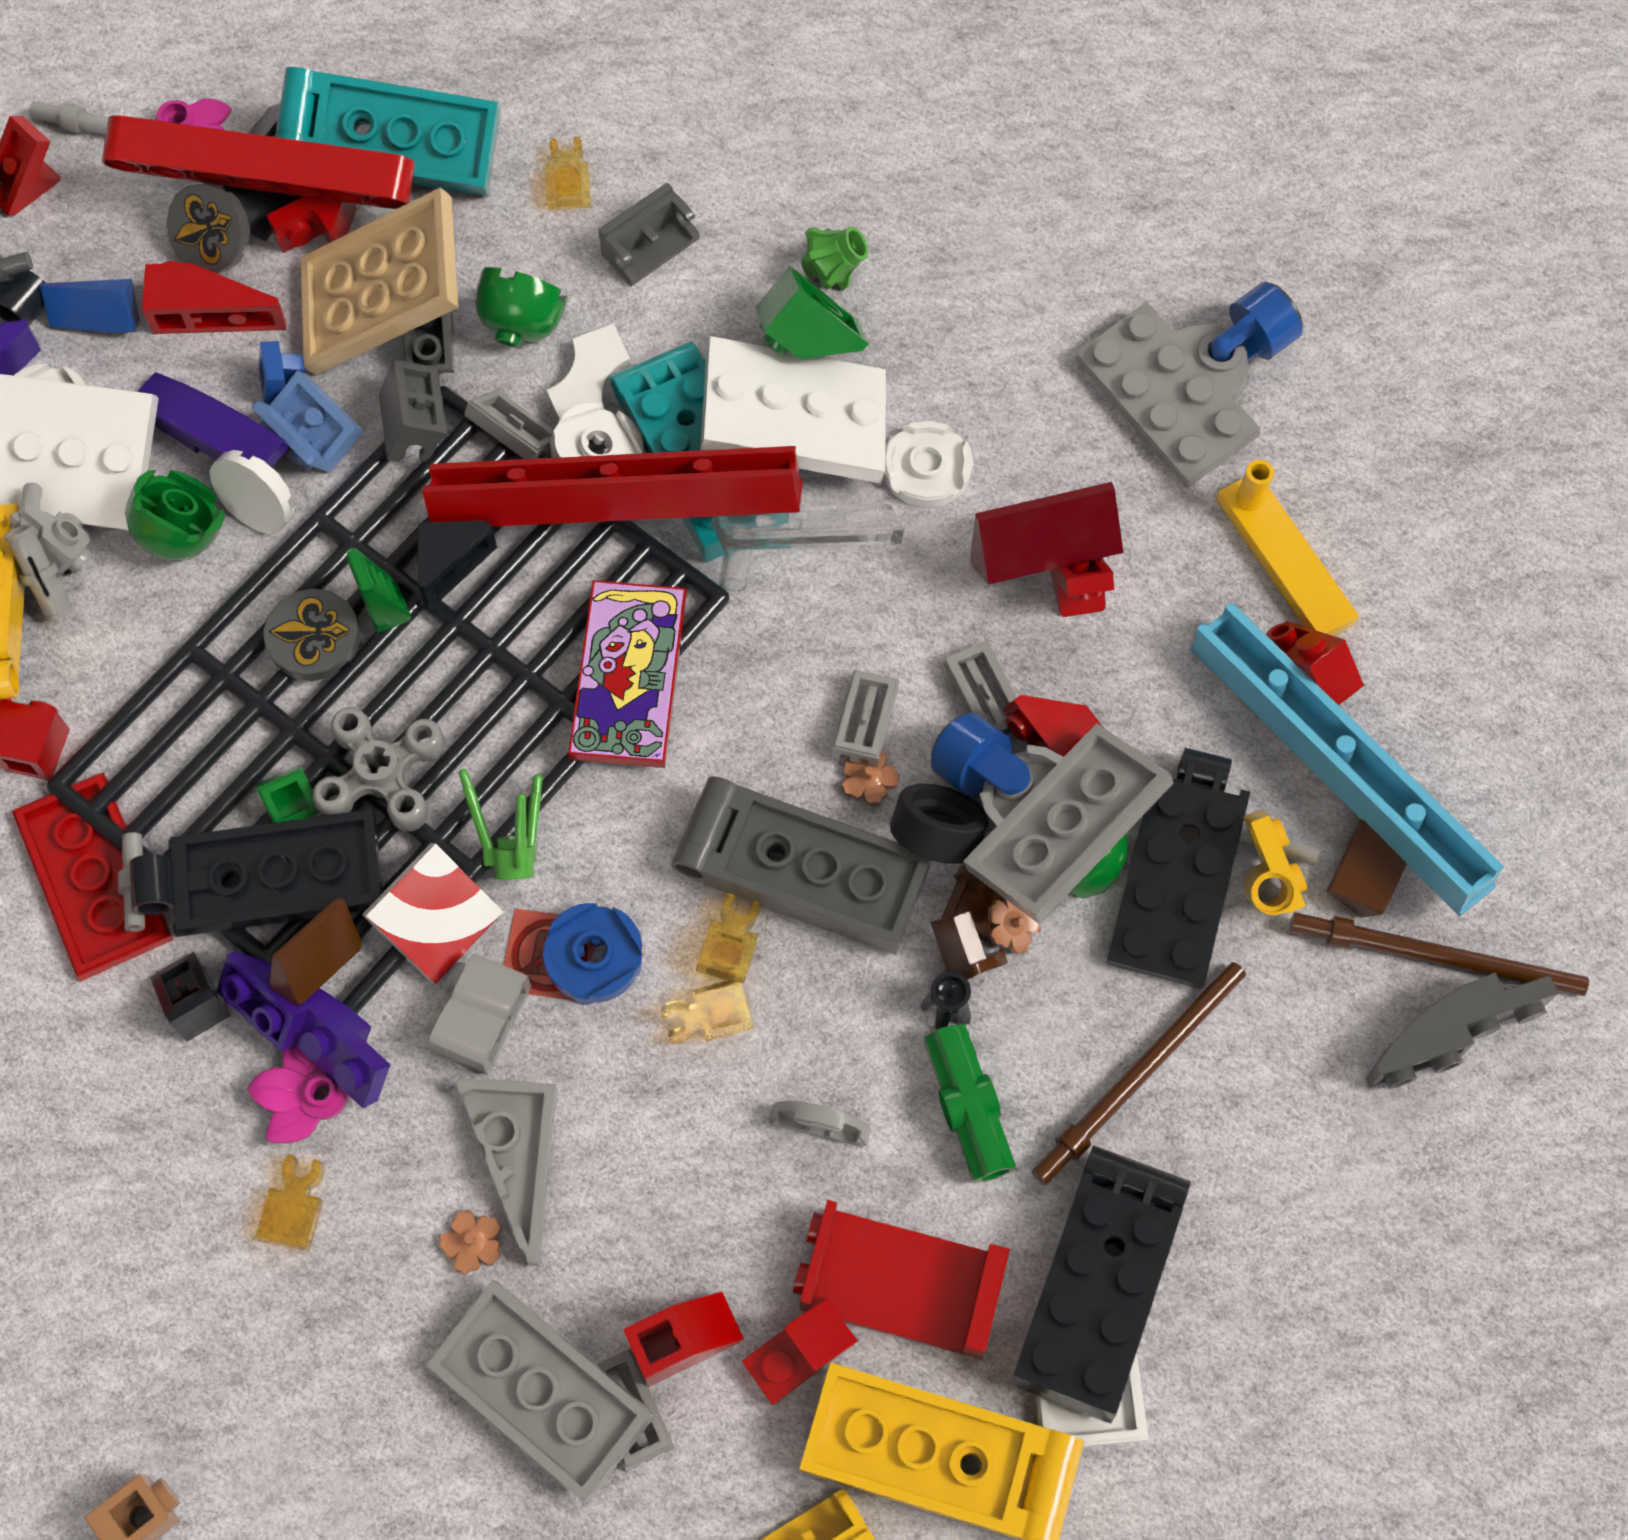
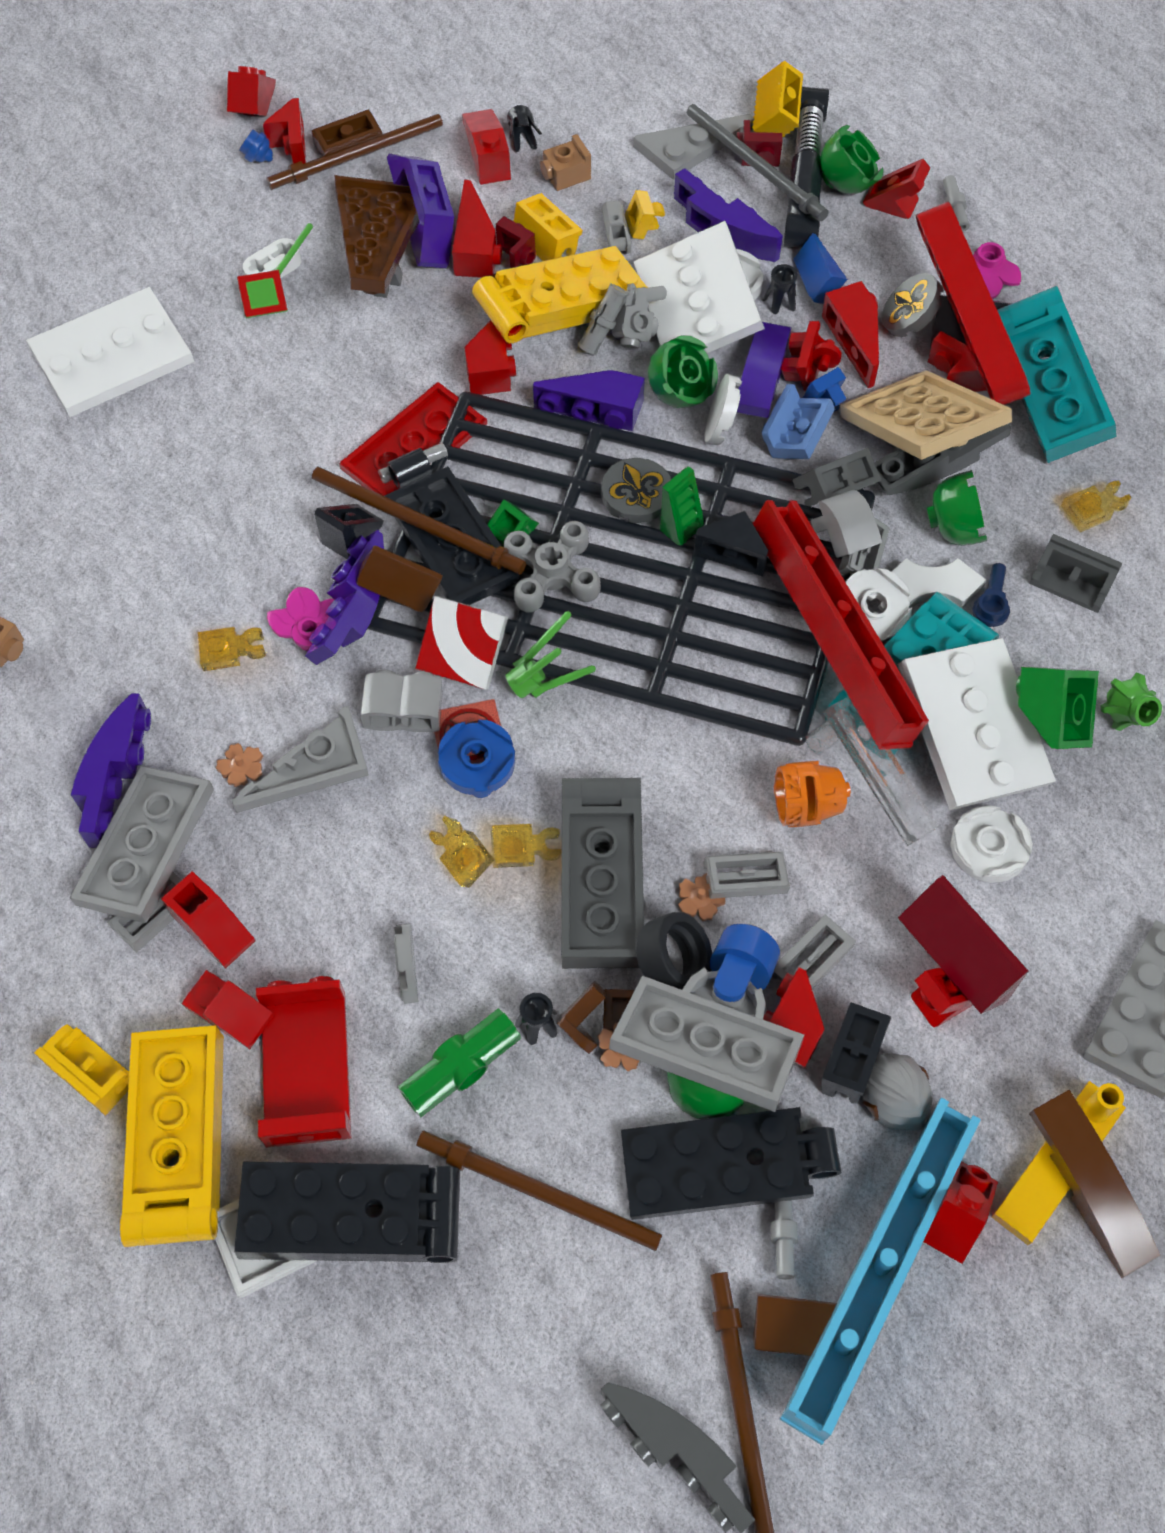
camera: 70 degrees right, 5 degrees down
(95, 348) = (782, 281): none -> black piece
(148, 626) = (596, 397): none -> dark purple slope
(197, 362) = (813, 353): none -> red hips
(341, 822) = (498, 556): none -> reddish brown bar
(394, 1397) = (108, 760): none -> dark purple slope
(494, 421) = (848, 523): none -> light grey brick
(628, 674) = (701, 695): tile -> none
(648, 332) = (993, 606): none -> dark blue plate
(802, 613) = (809, 793): none -> orange helmet
(1115, 691) = (855, 1052): none -> black hinge
(1163, 671) = (898, 1092): none -> light grey hair
(1268, 840) = (769, 1223): yellow plate -> none
(1323, 530) = (1096, 1184): none -> reddish brown slope

